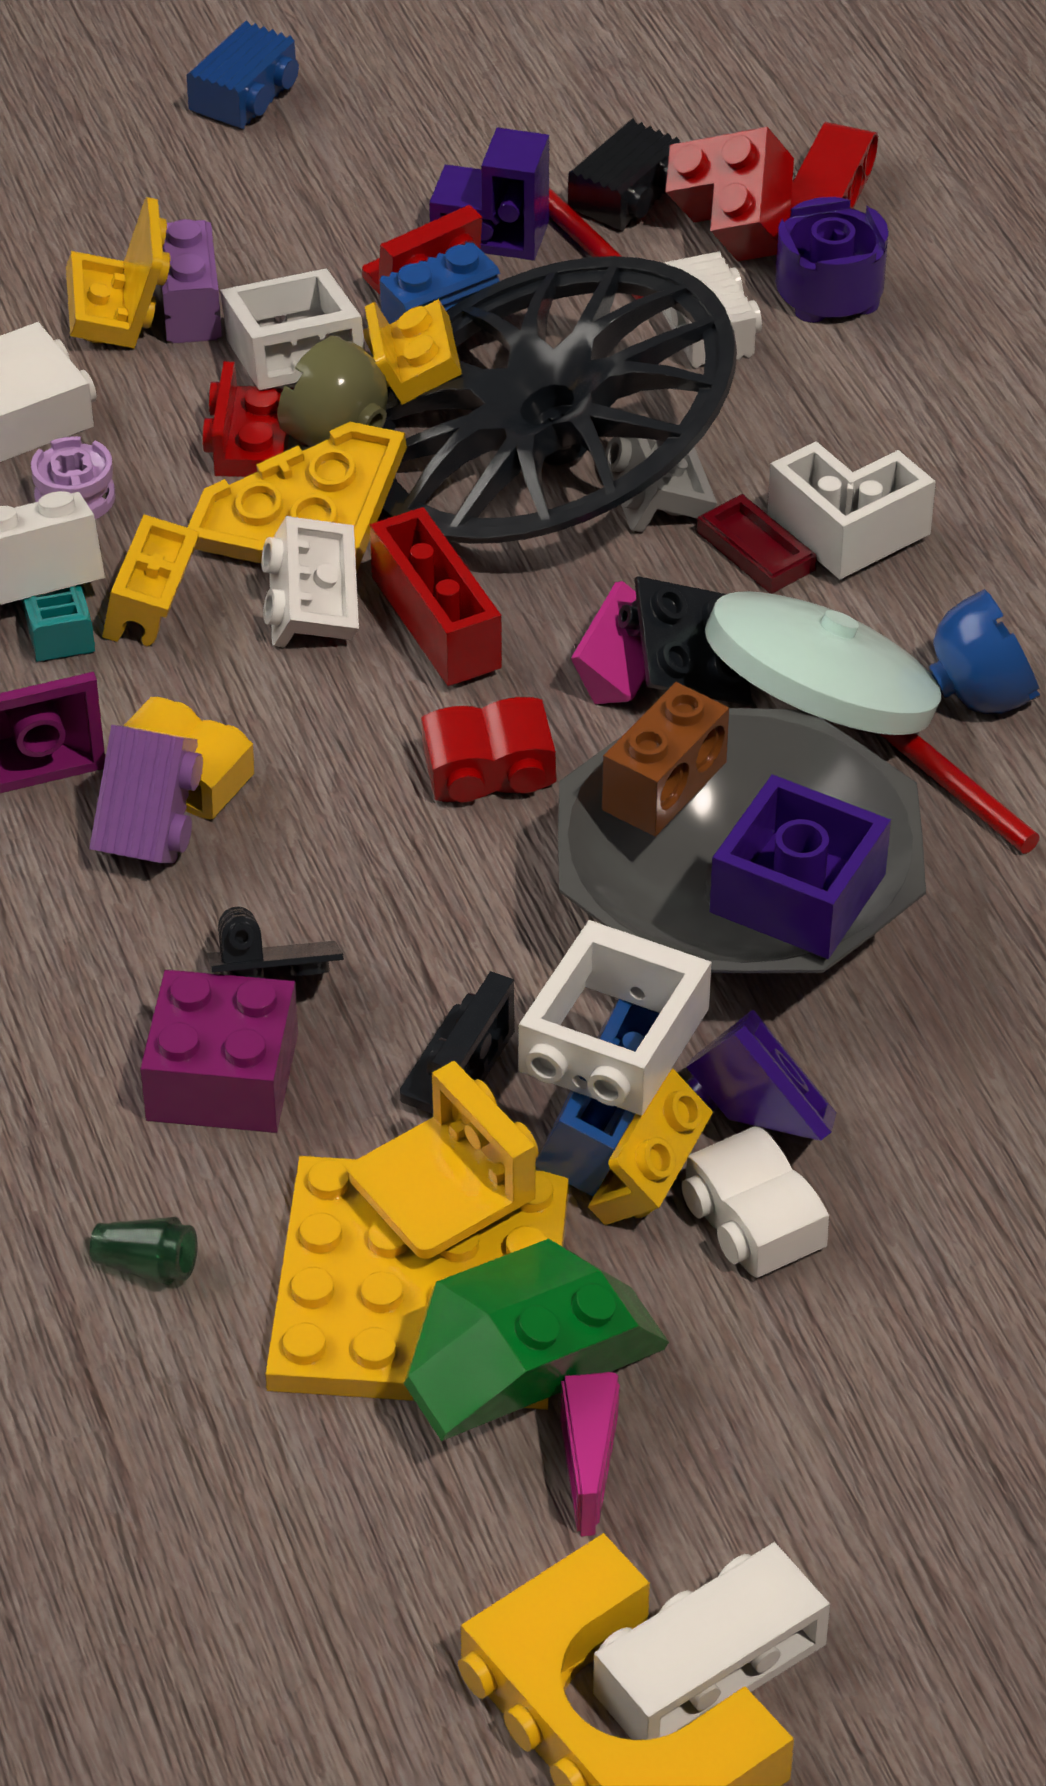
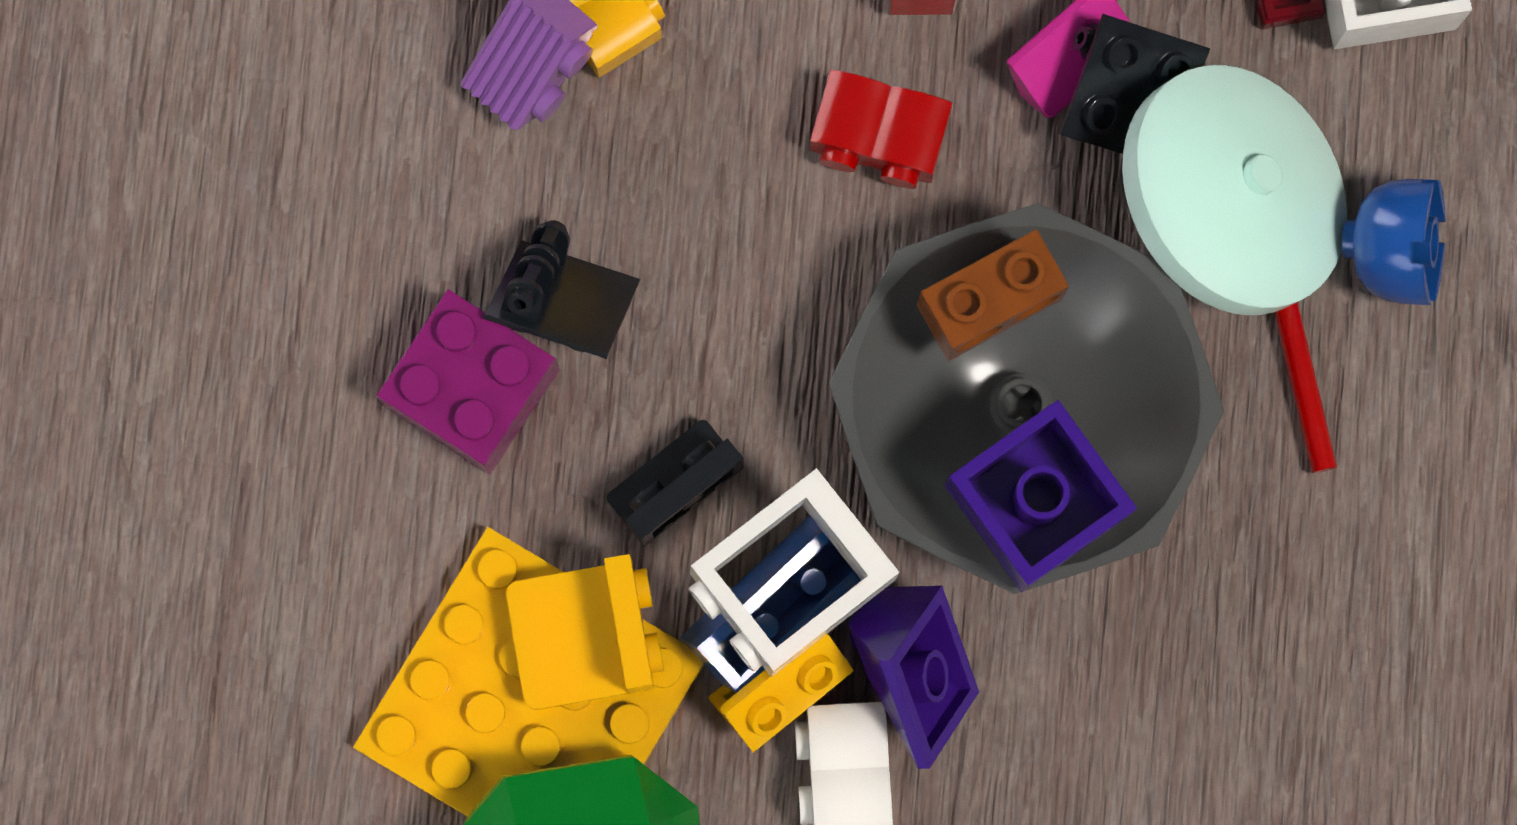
camera: 25 degrees right, 35 degrees up
(146, 1248) = (314, 566): clear green cone -> none

